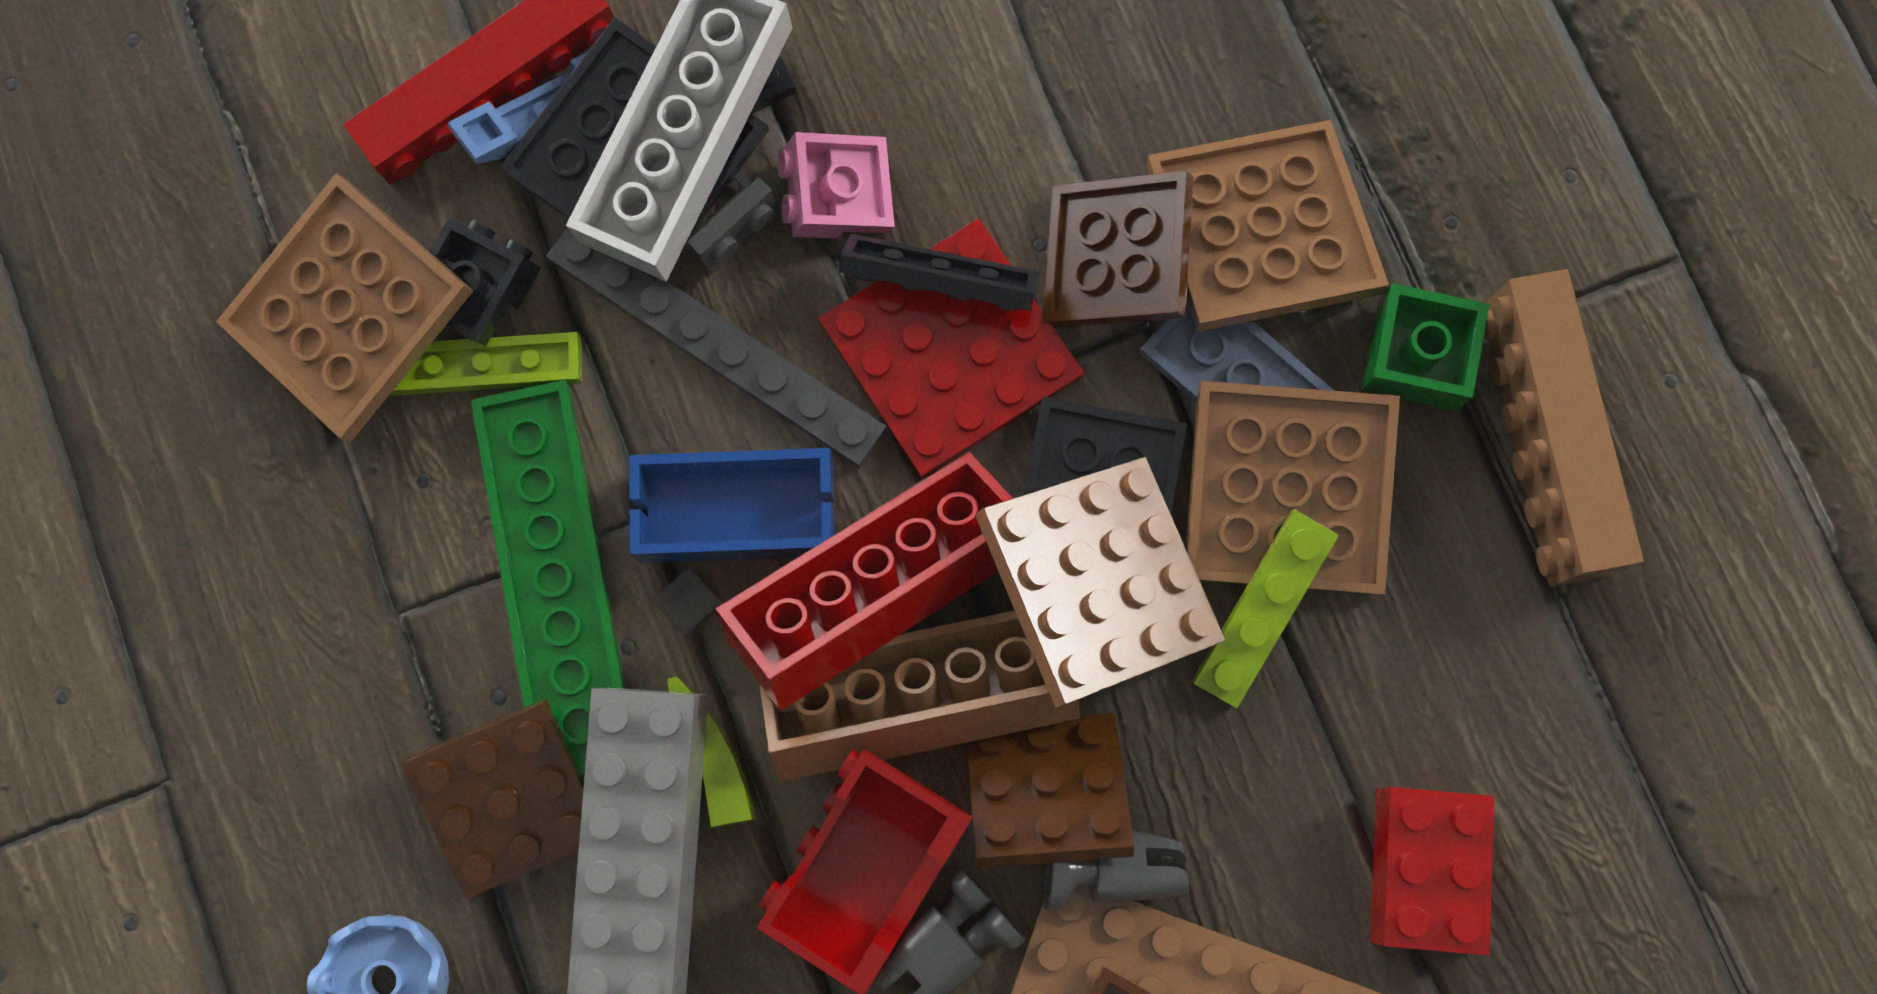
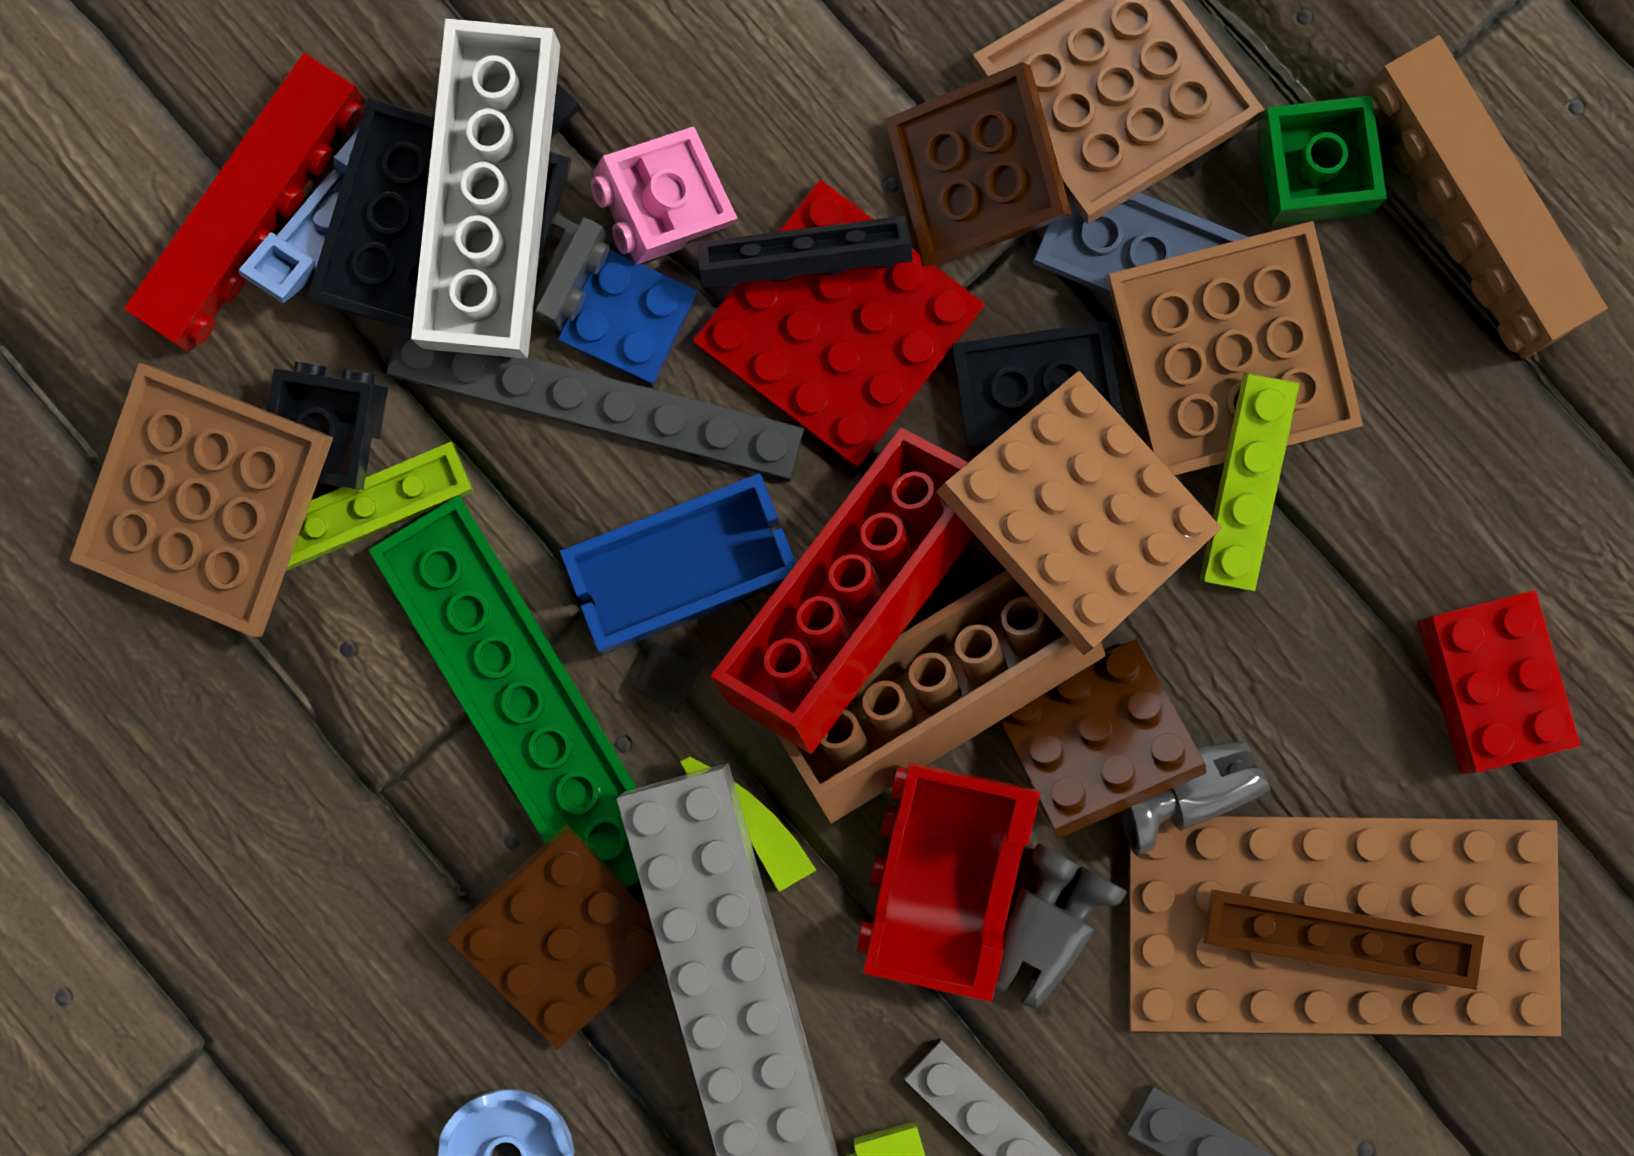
camera: 20 degrees left, 5 degrees up
(771, 280) = (629, 317): none -> blue plate

